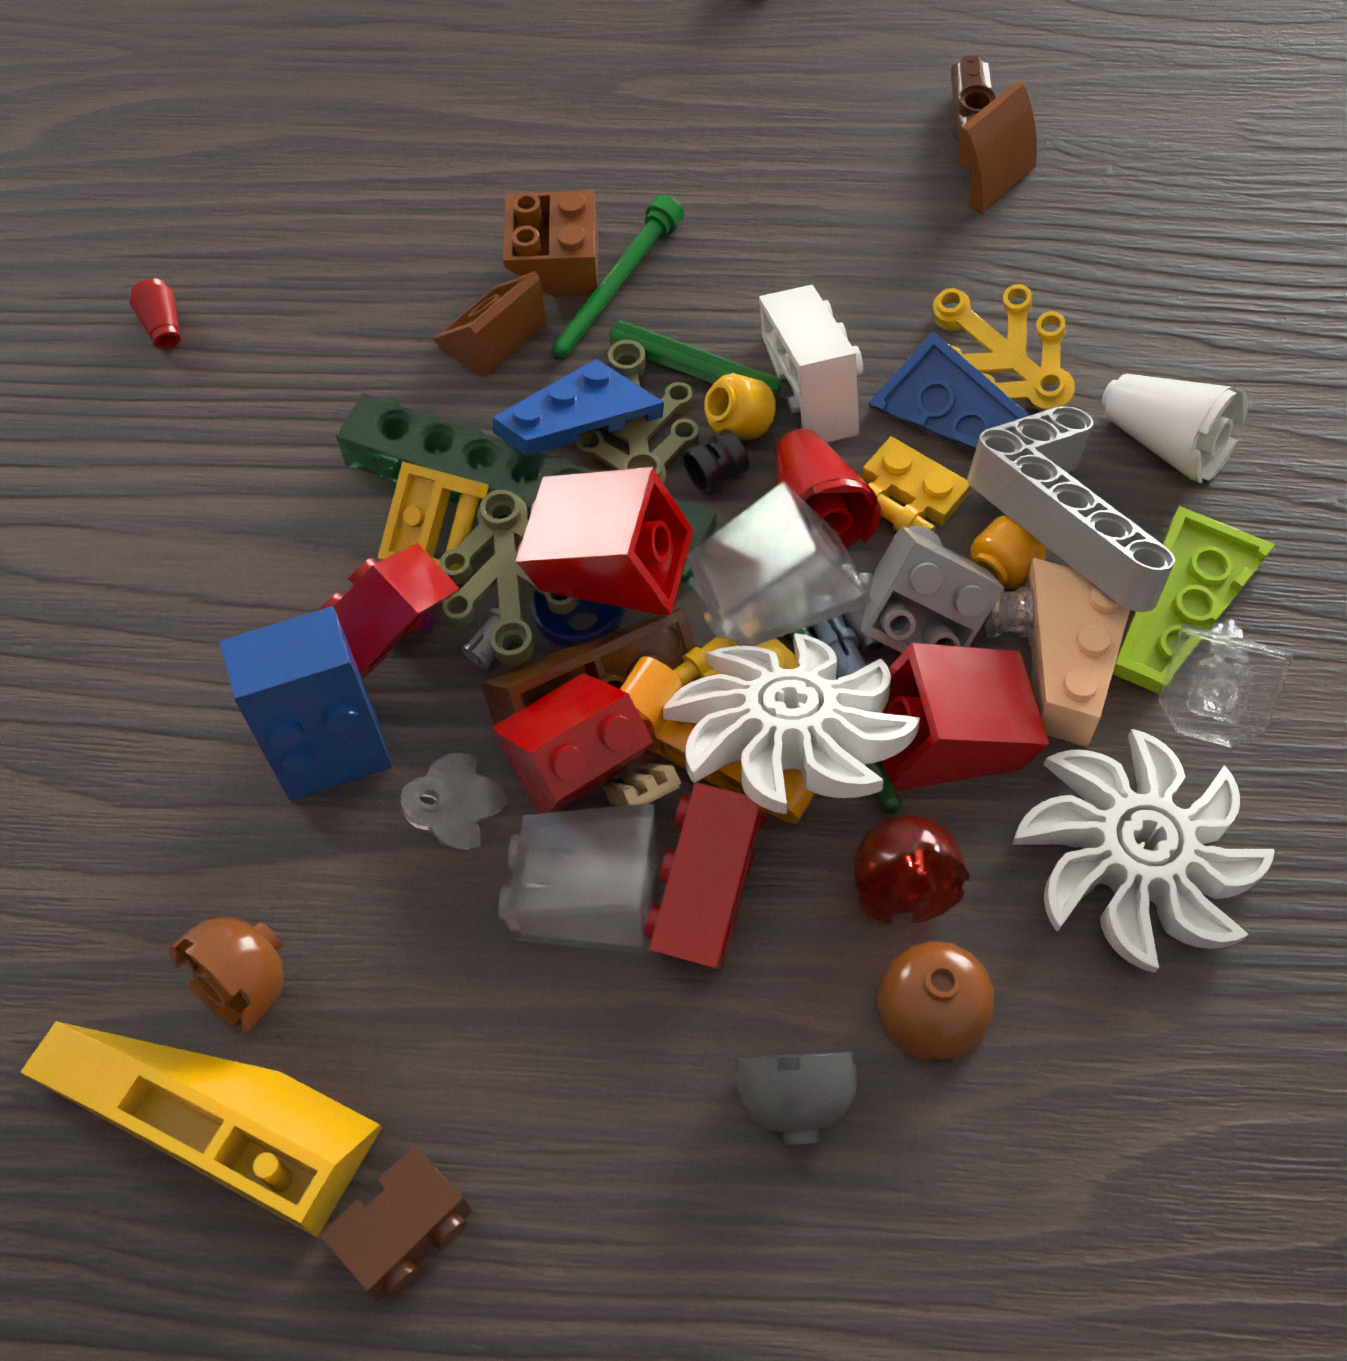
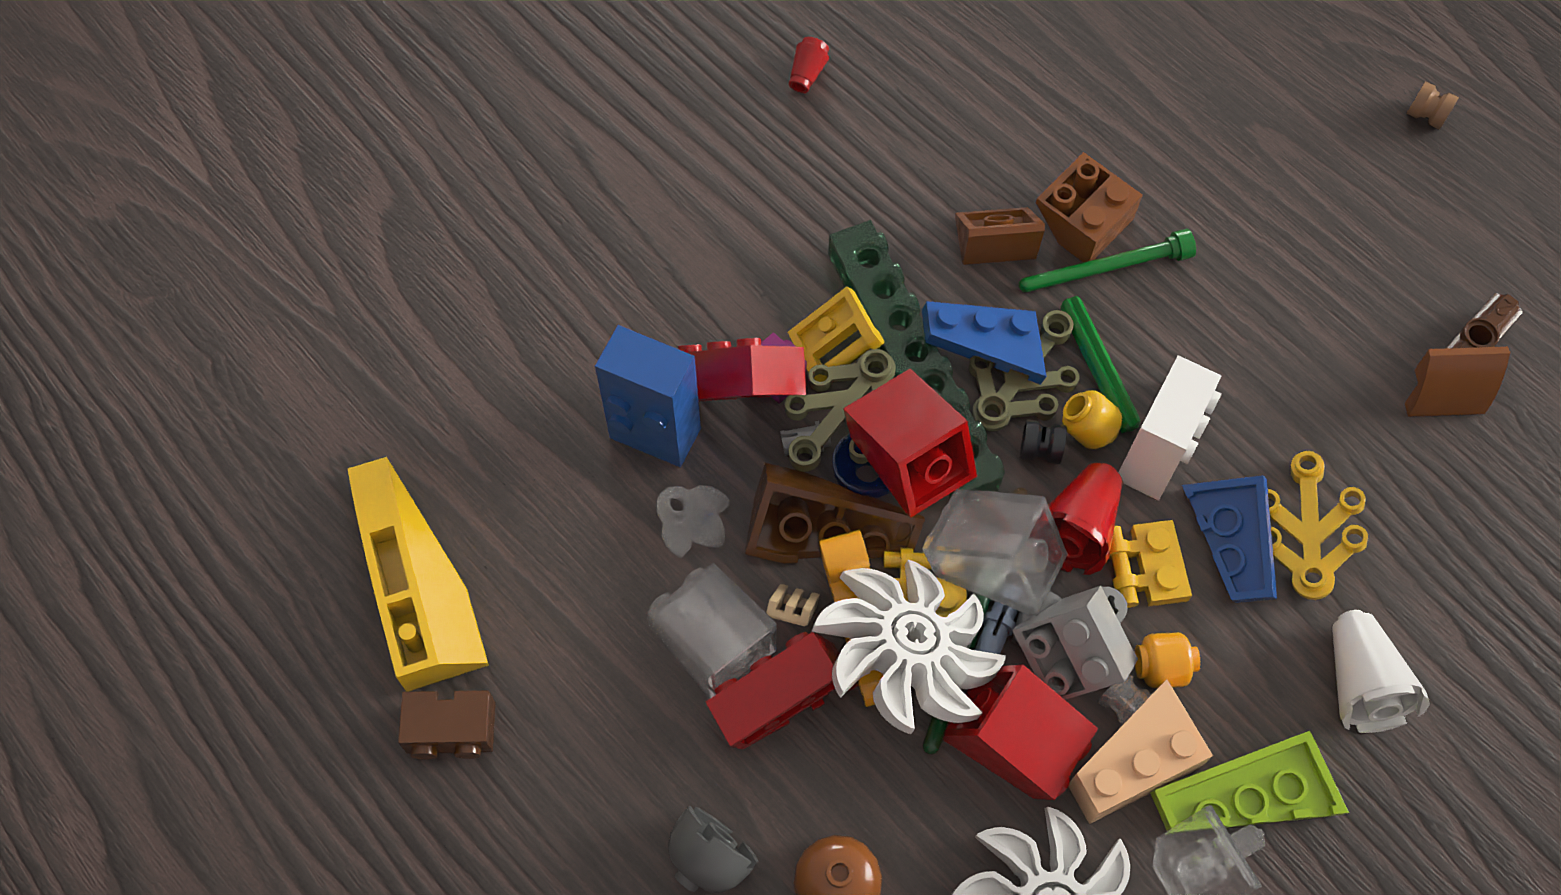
camera: 40 degrees right, 5 degrees up
(232, 968) = (491, 509): dark orange cylinder -> none
(572, 741) = (772, 542): red slope -> none
(909, 868) = (895, 790): clear red cylinder -> none
(1026, 476) = (1211, 620): light grey beam -> none

